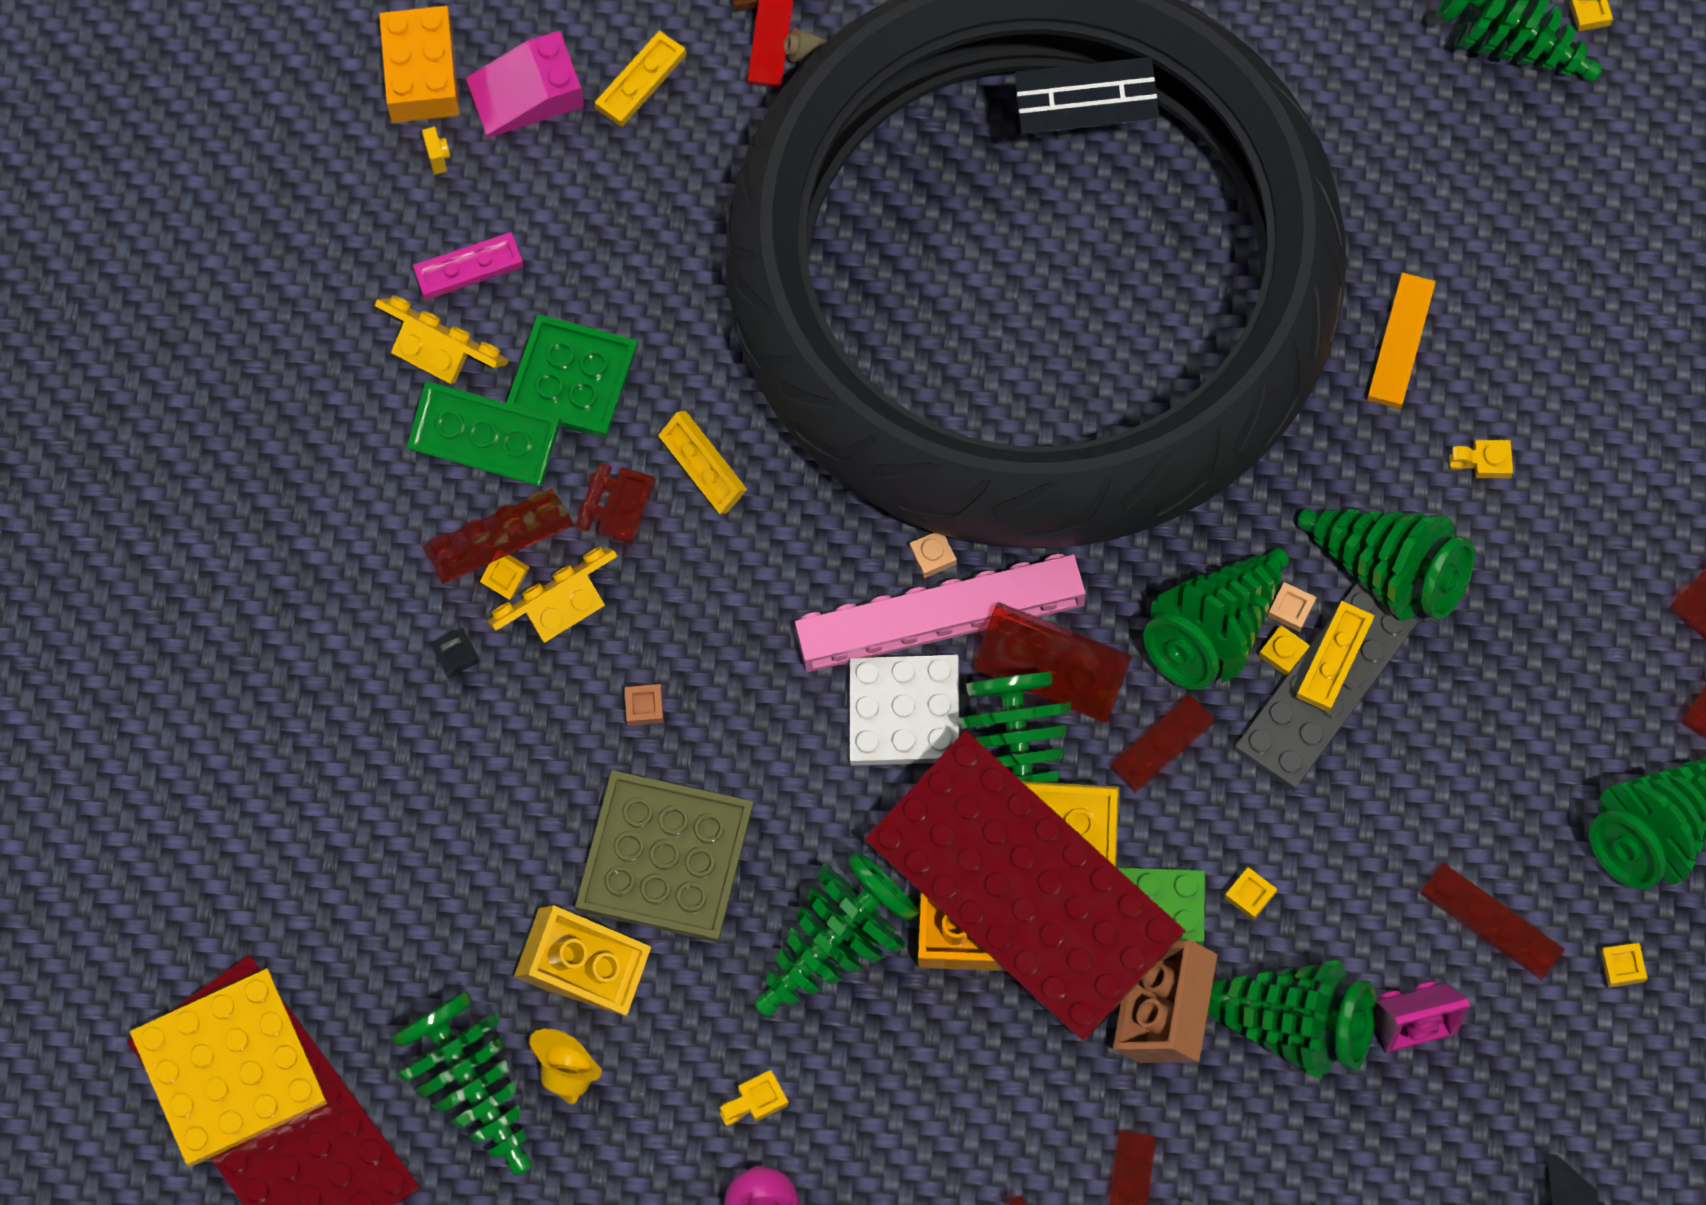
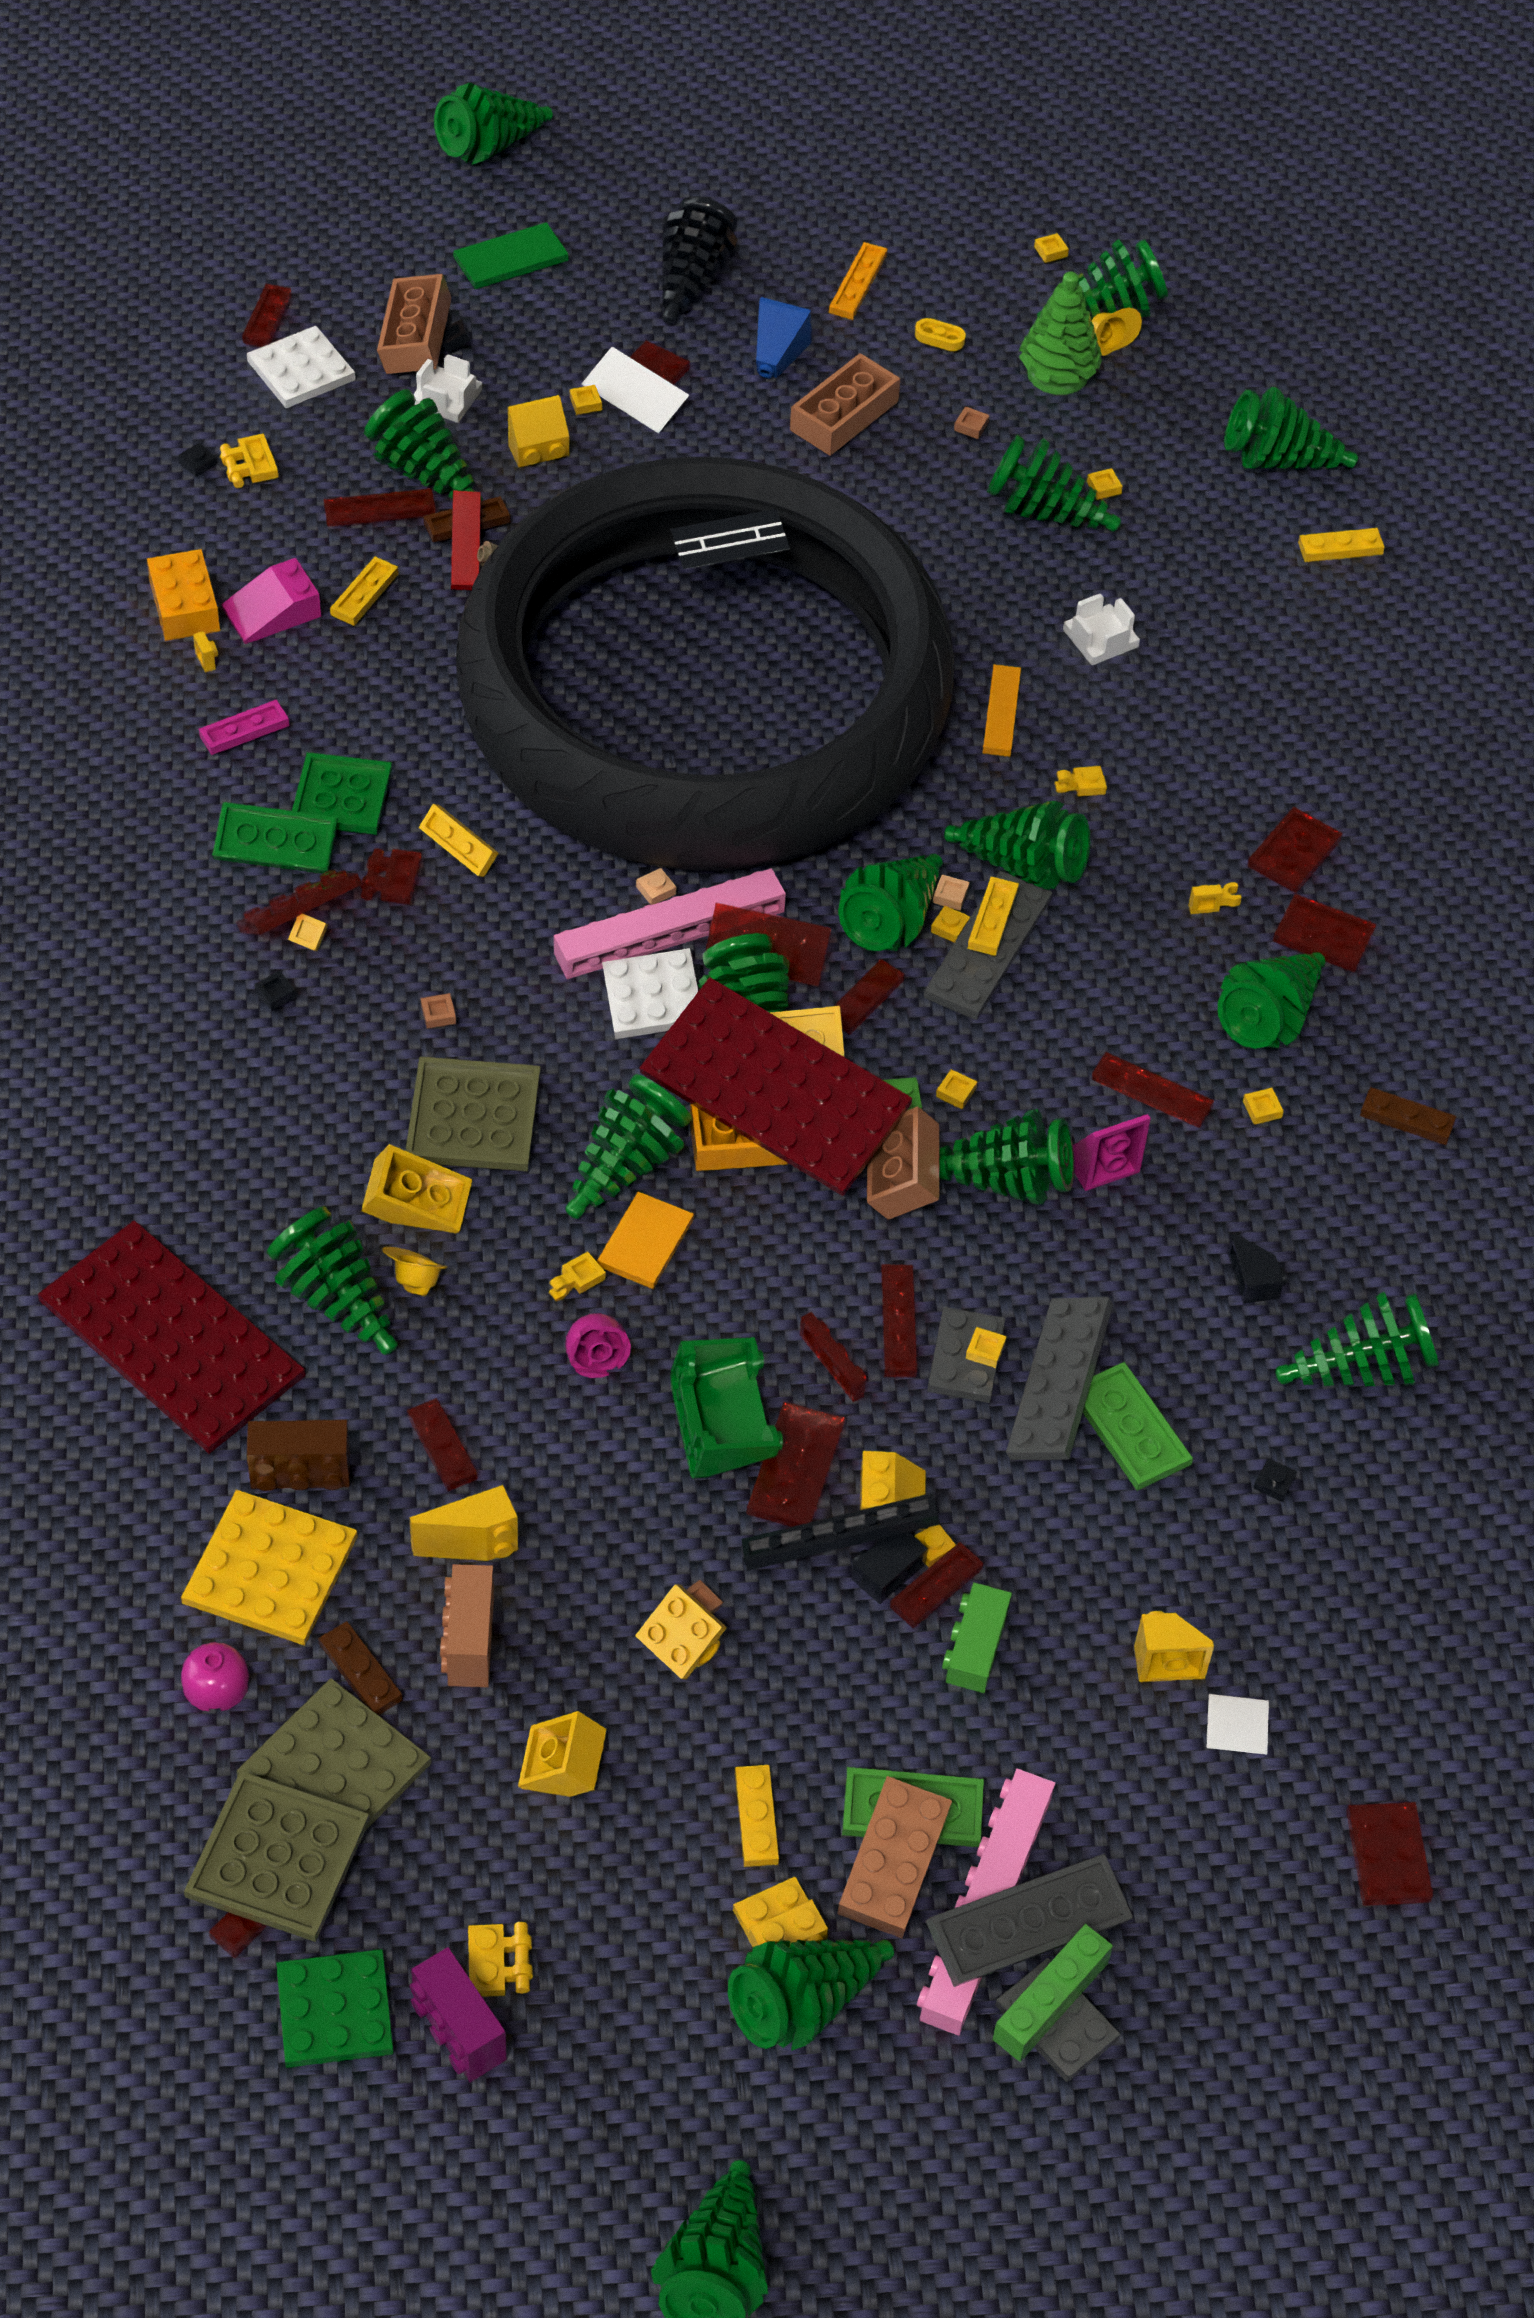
camera: 15 degrees left, 15 degrees down
(228, 1067) = (129, 1298): yellow plate -> none
(433, 345) = (224, 784): yellow bracket -> none
(559, 602) = (357, 948): yellow bracket -> none
(843, 1057) = (645, 1240): none -> light orange tile
(1548, 235) = (1102, 630): none -> white panel
(1612, 655) = (1210, 898): none -> yellow plate

